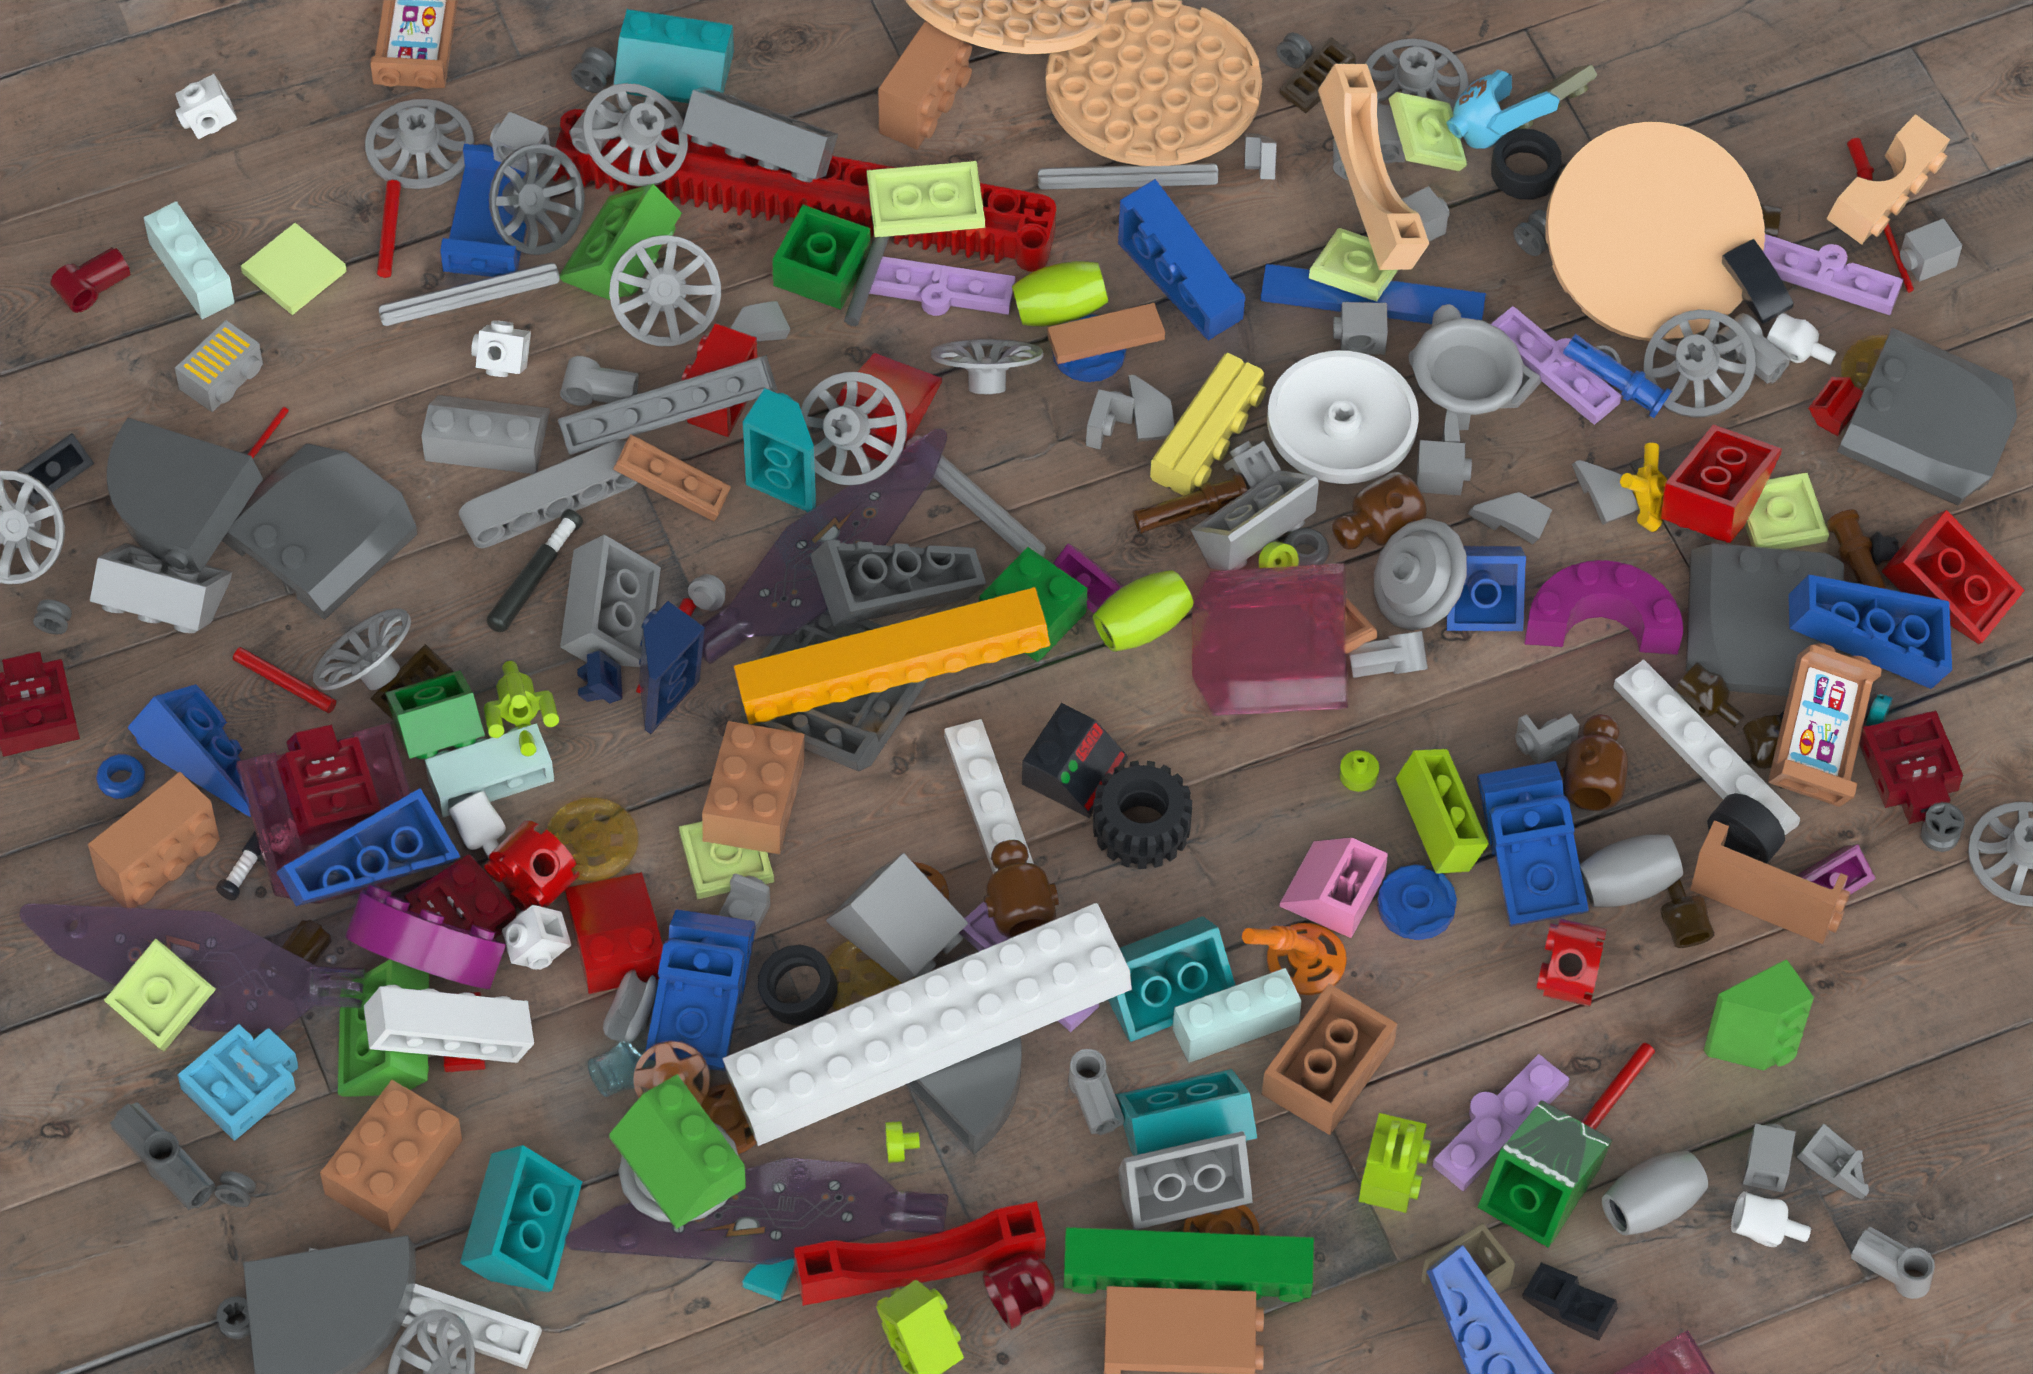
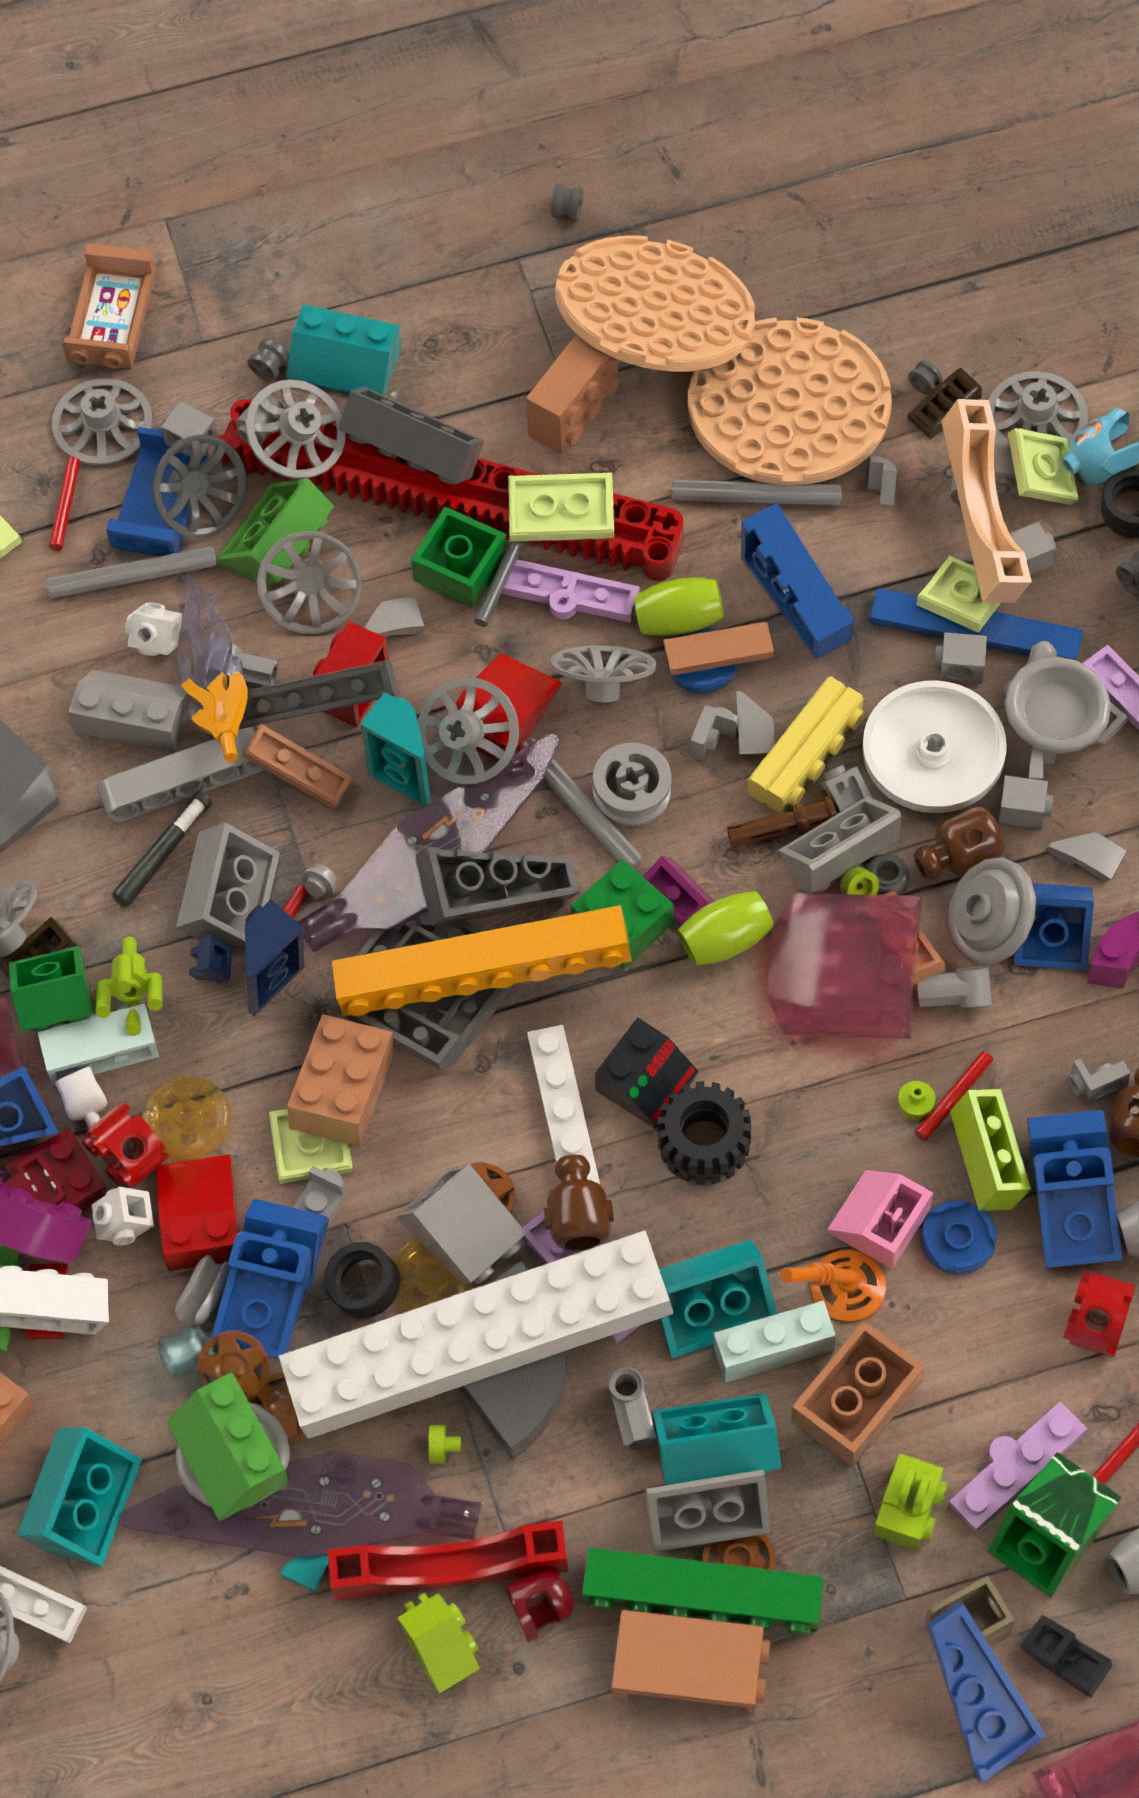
camera: 10 degrees right, 5 degrees up
(569, 372) = (213, 660): none -> piece
(1028, 457) = (634, 804): none -> light grey wheel
(1393, 768) = (946, 1104): none -> red bar

